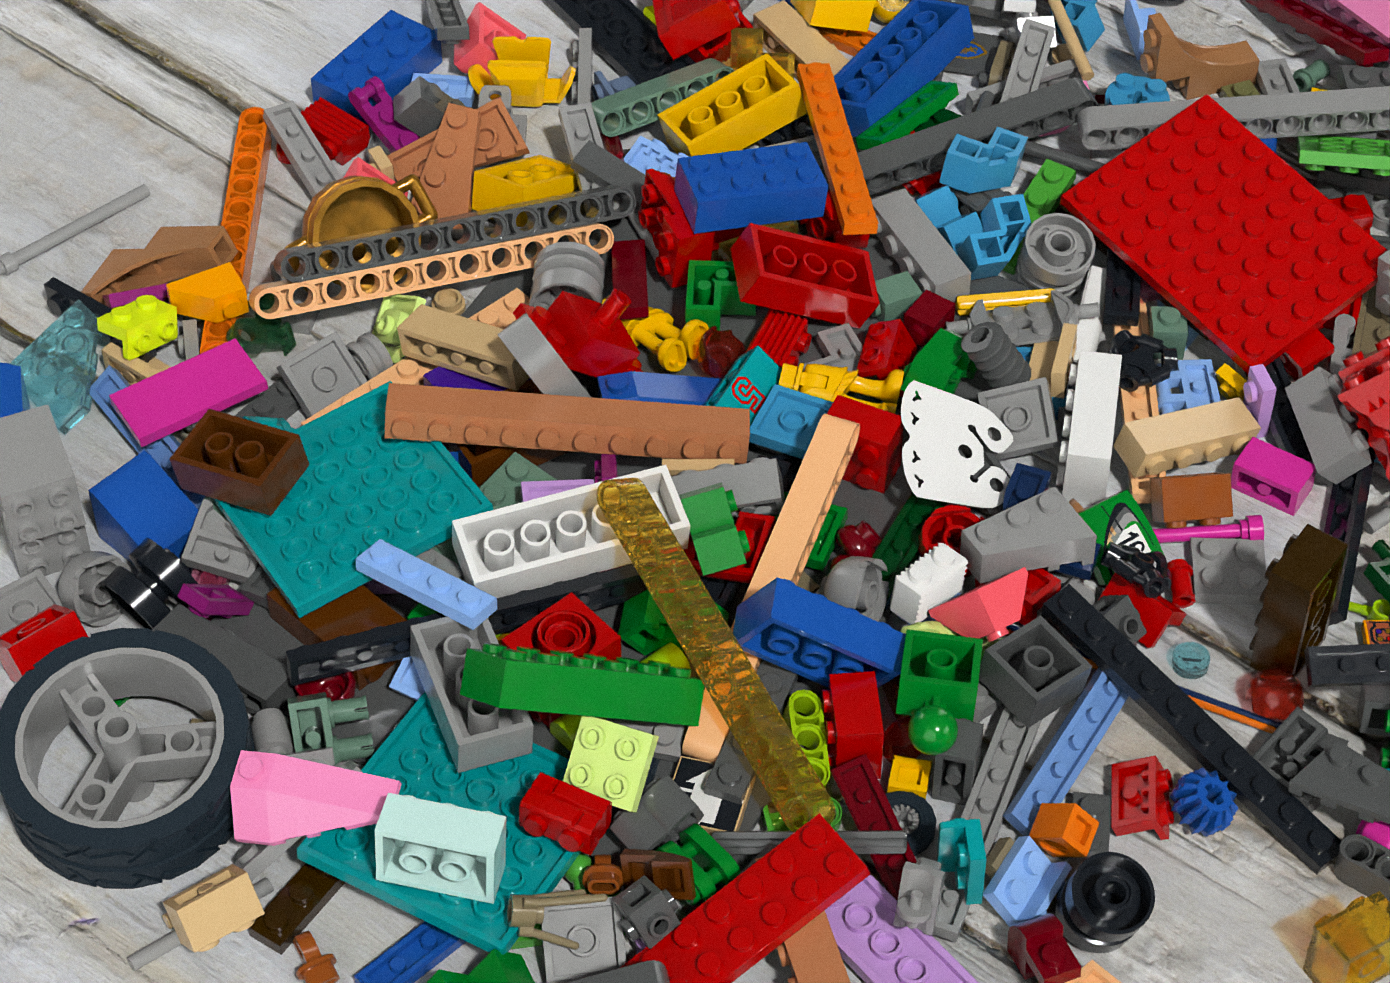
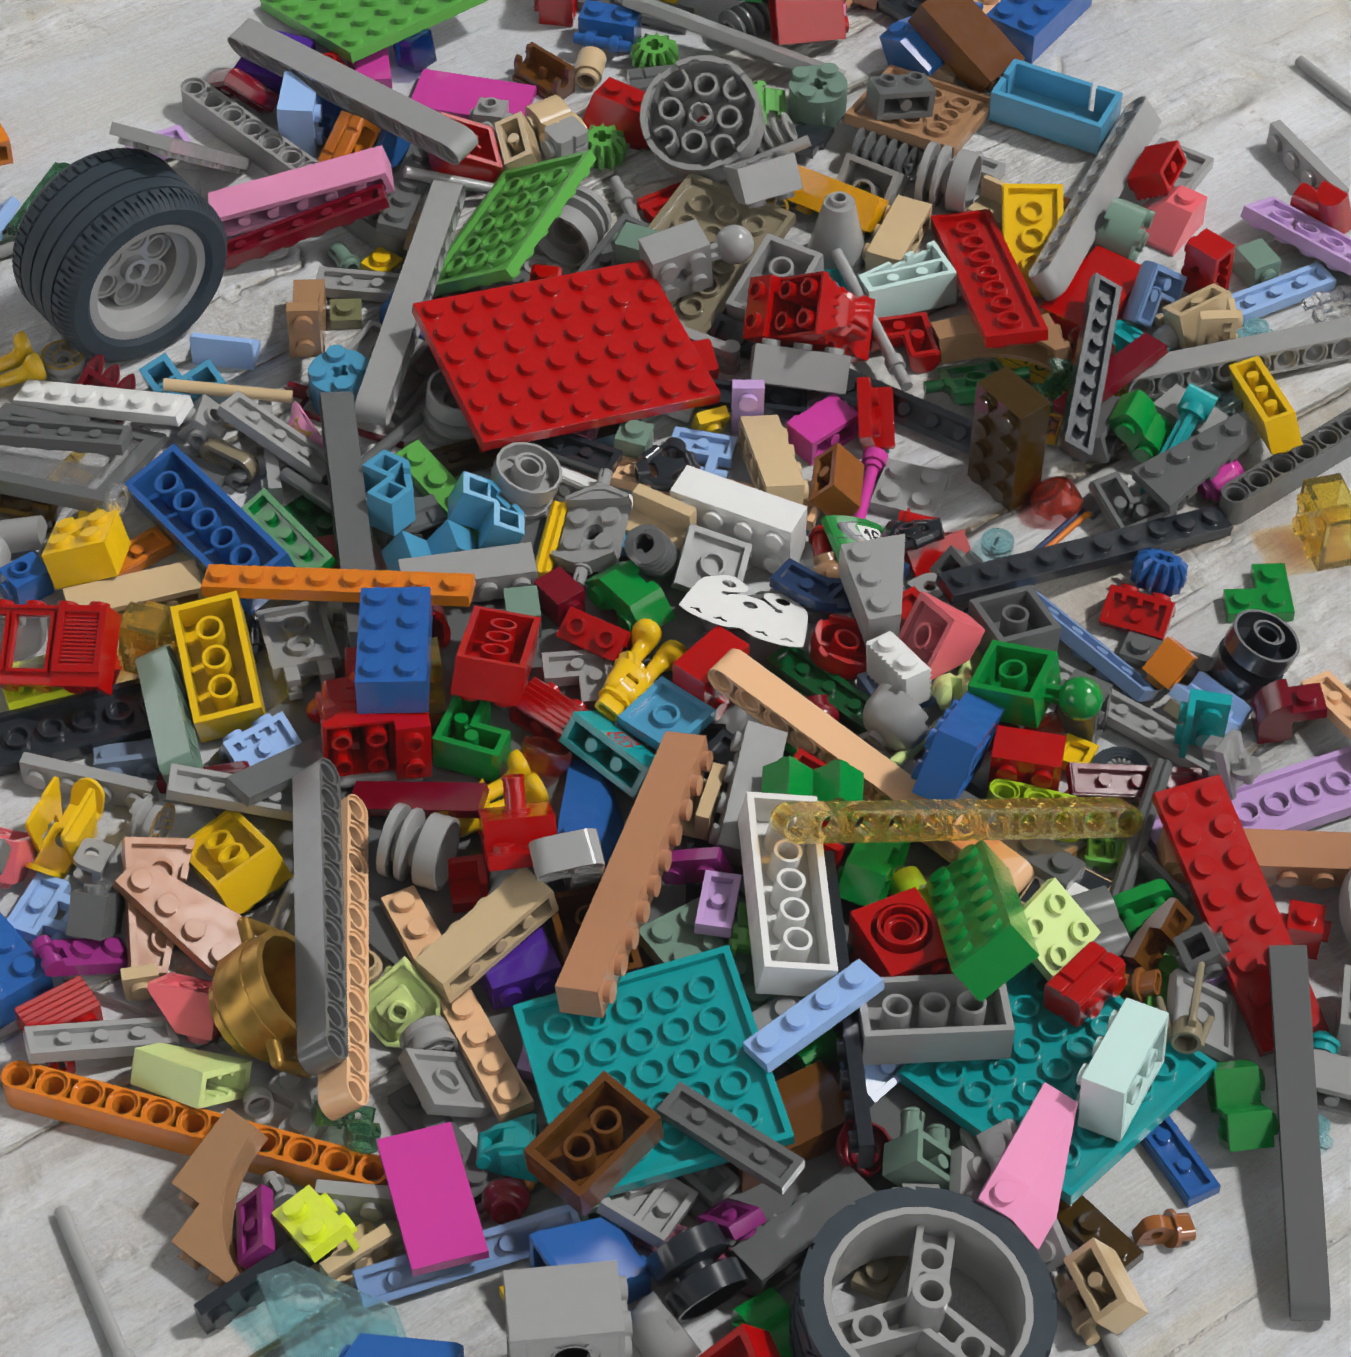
camera: 75 degrees left, 0 degrees up
(210, 294) = (306, 1146): light orange slope -> none
(273, 558) = (731, 1138): none -> dark grey plate
(281, 214) = (190, 1074): none -> yellowish green slope
(546, 128) = (150, 817): none -> light grey wheel
(1226, 925) = (1269, 593): none -> green plate
(1304, 501) = (875, 415): none -> red bracket

